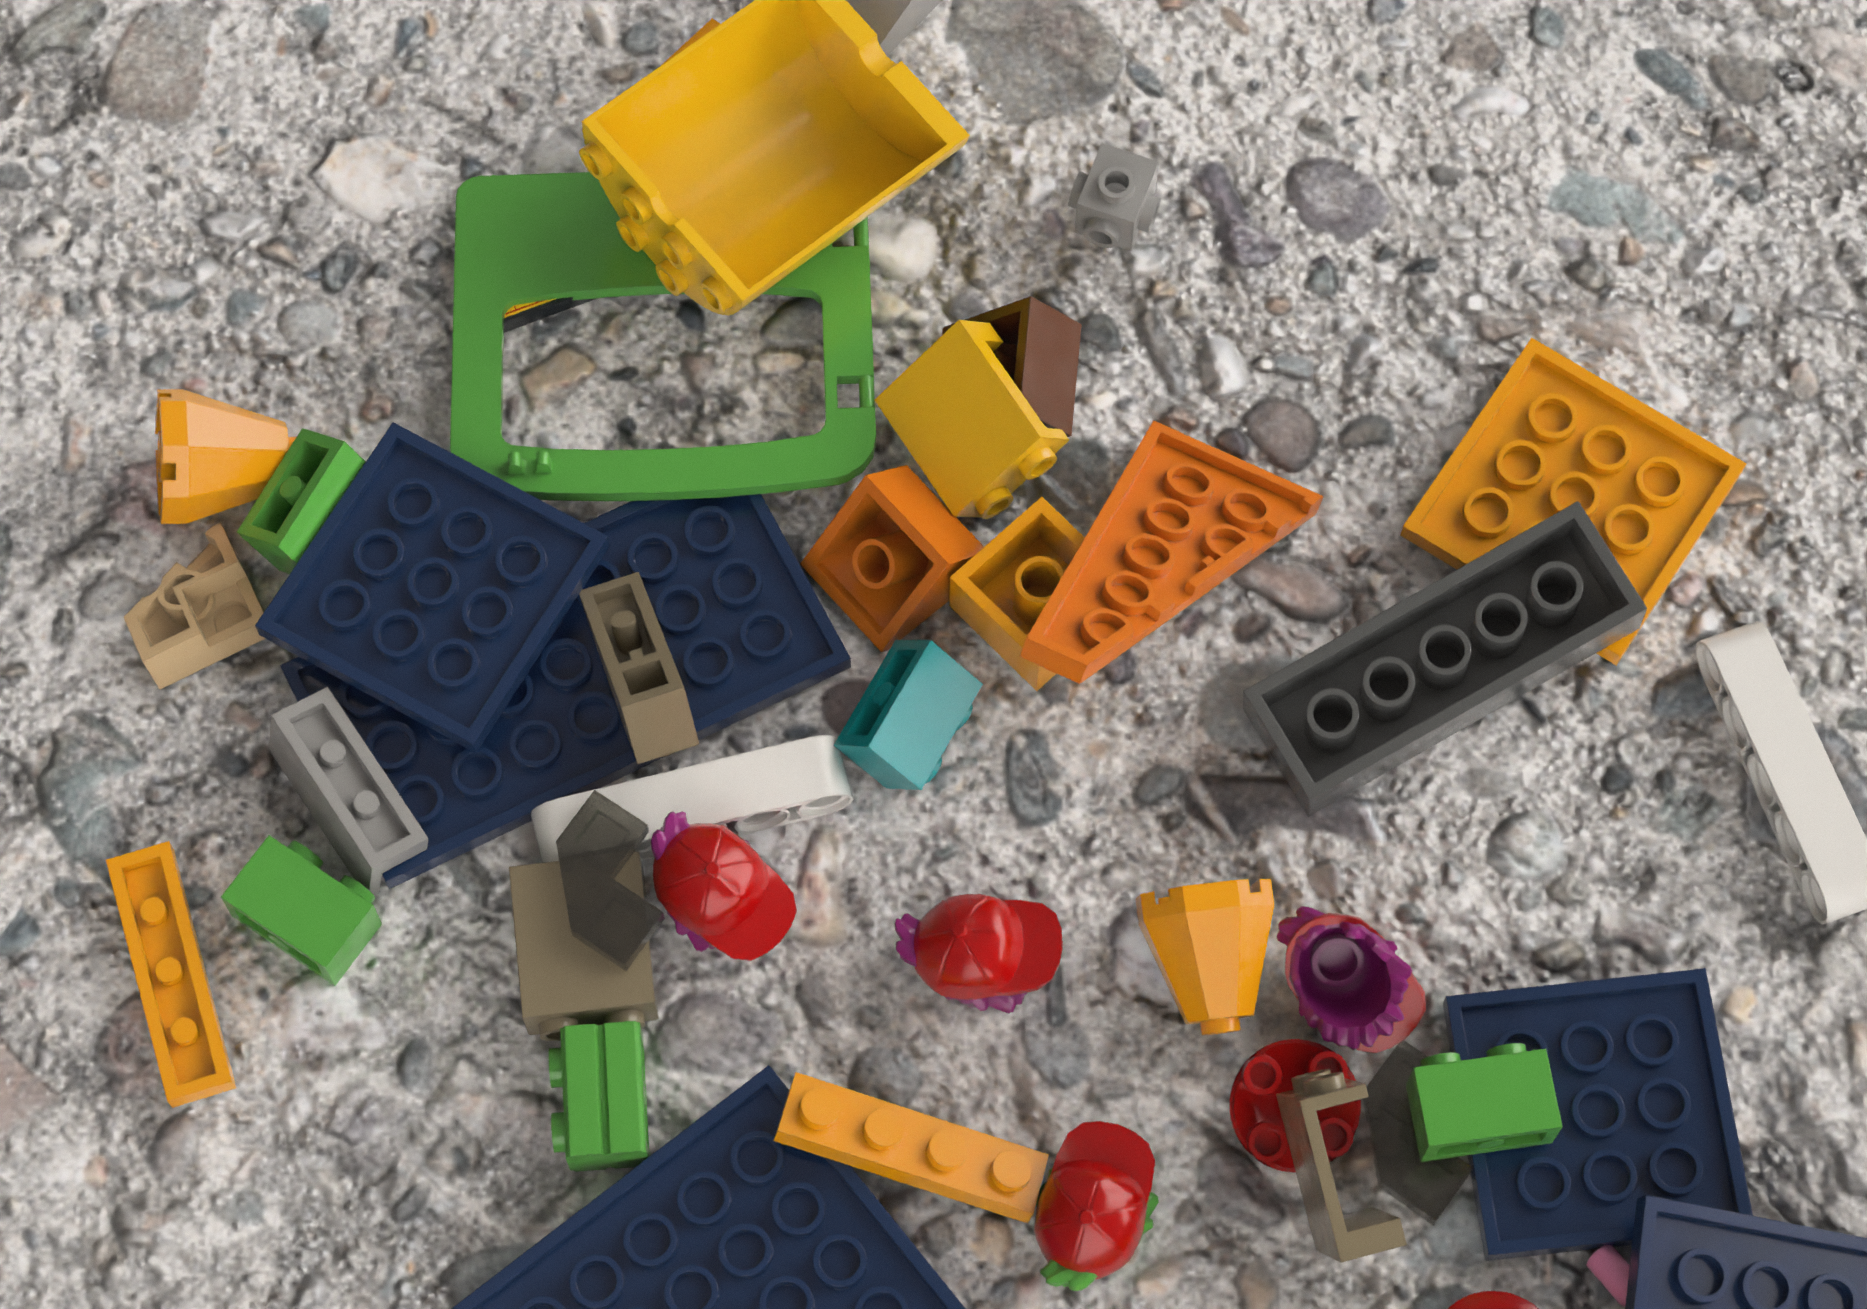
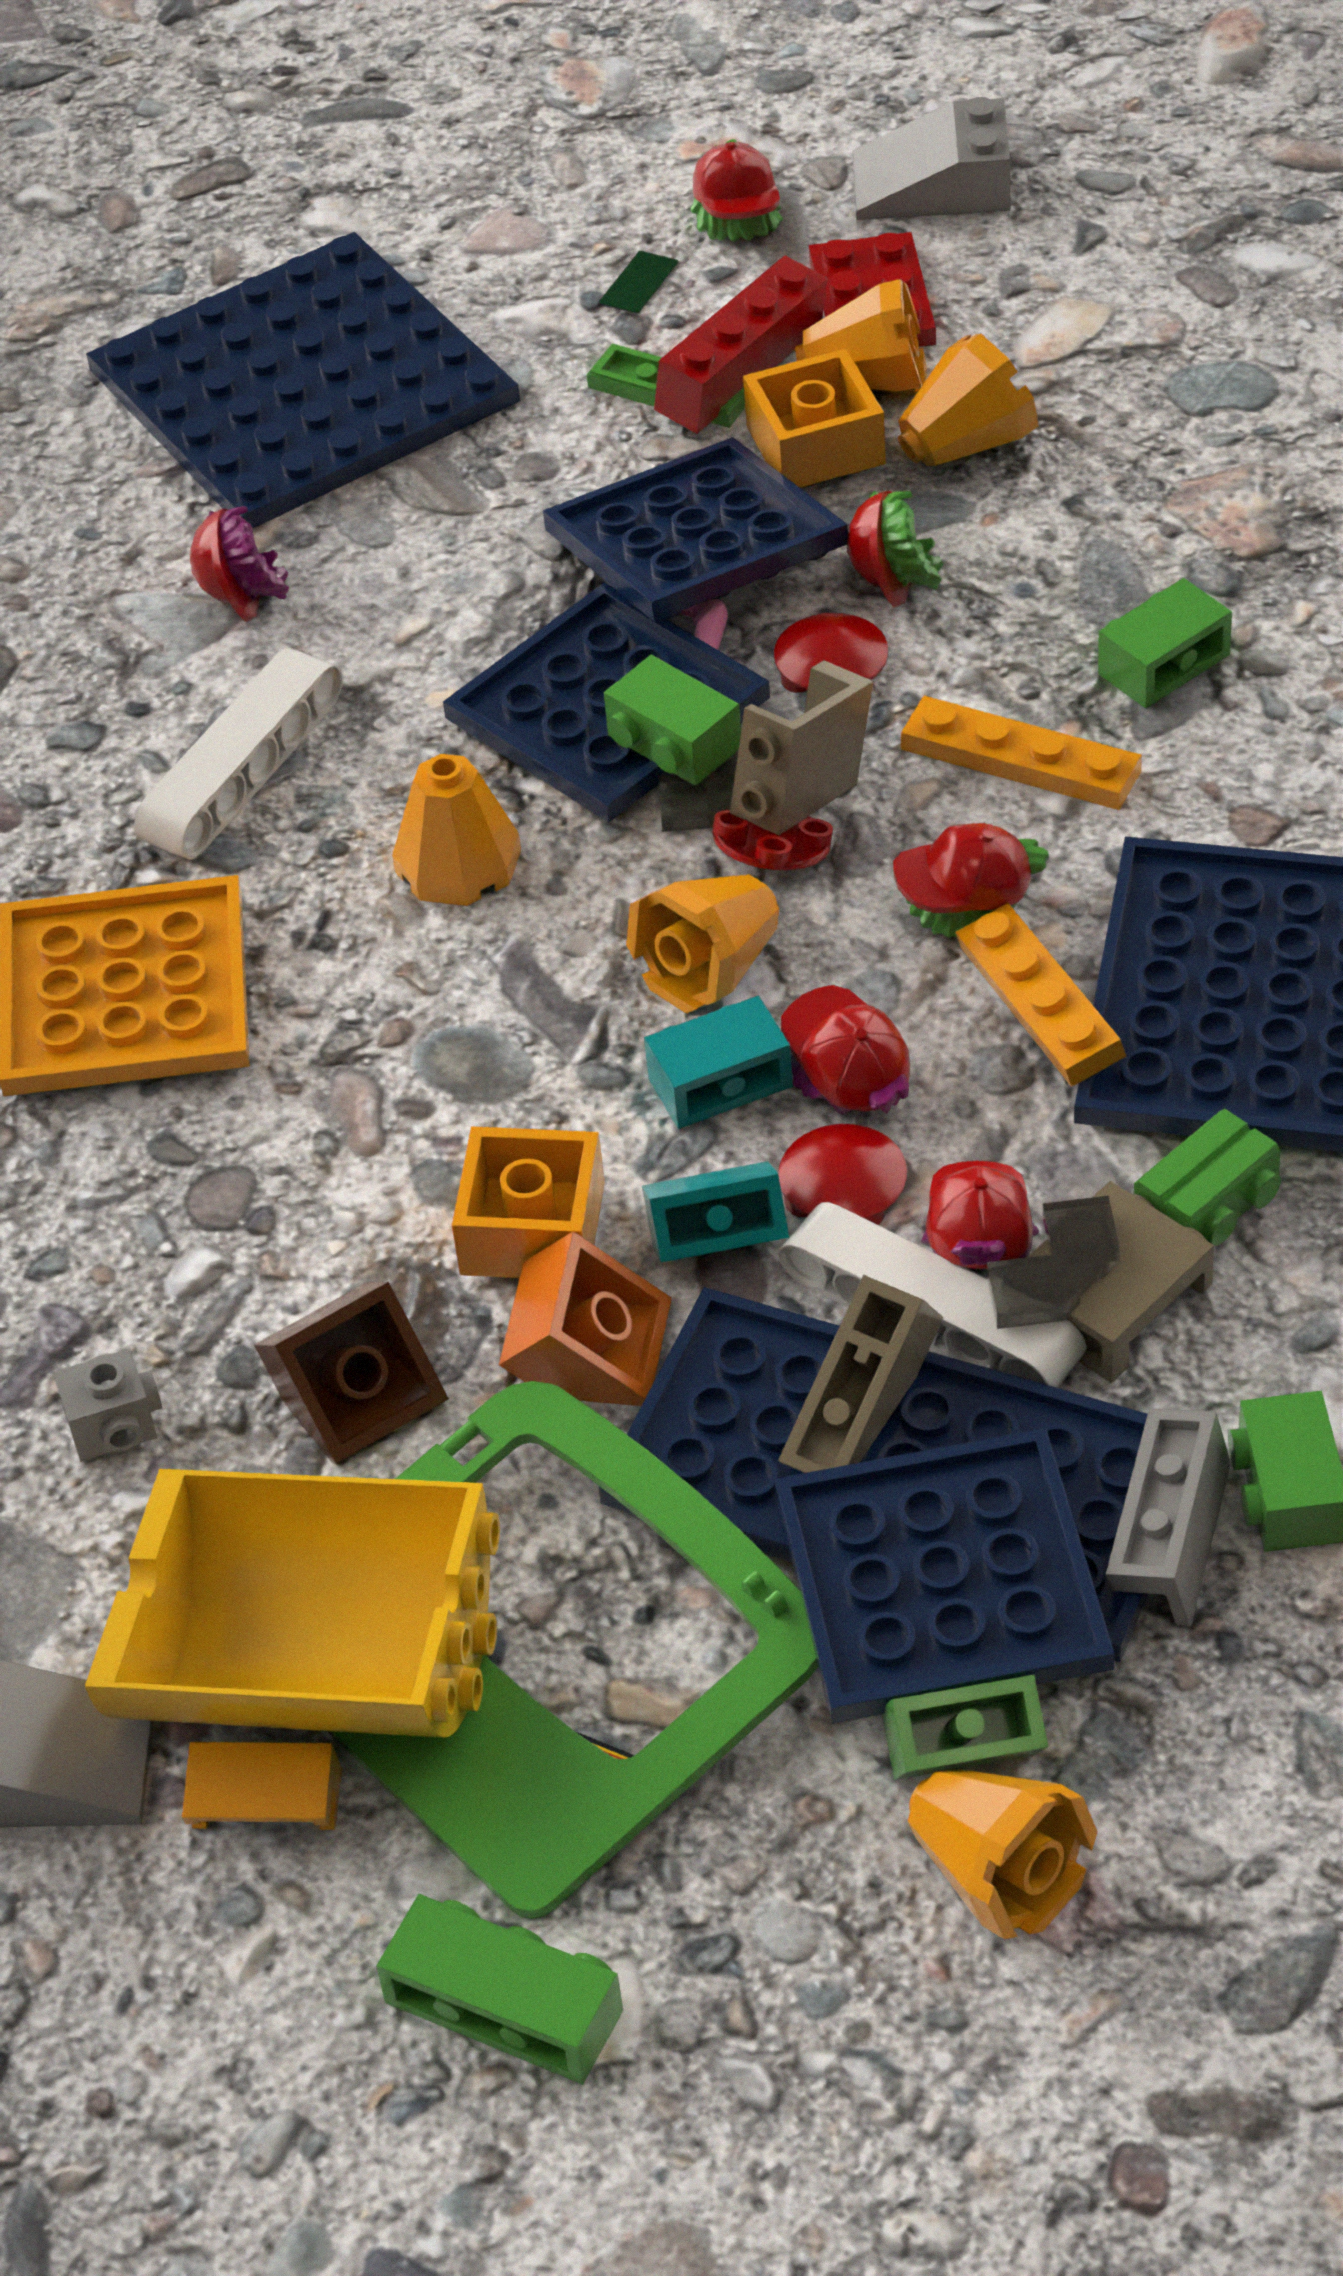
camera: 125 degrees left, 20 degrees down
(196, 613) = (1141, 1760): tan slope -> none
(417, 117) = (501, 1987): none -> bright green brick
(879, 859) = (843, 1167): none -> red dish
(969, 422) = (421, 1338): yellow panel -> none
(1073, 850) = (718, 1061): none -> teal brick
(1160, 543) = (409, 1133): orange wing -> none
(1349, 980) = (653, 841): magenta hair -> none
(1443, 658) = (349, 934): dark grey brick -> none
(1515, 857) = (454, 834): none -> light orange cone

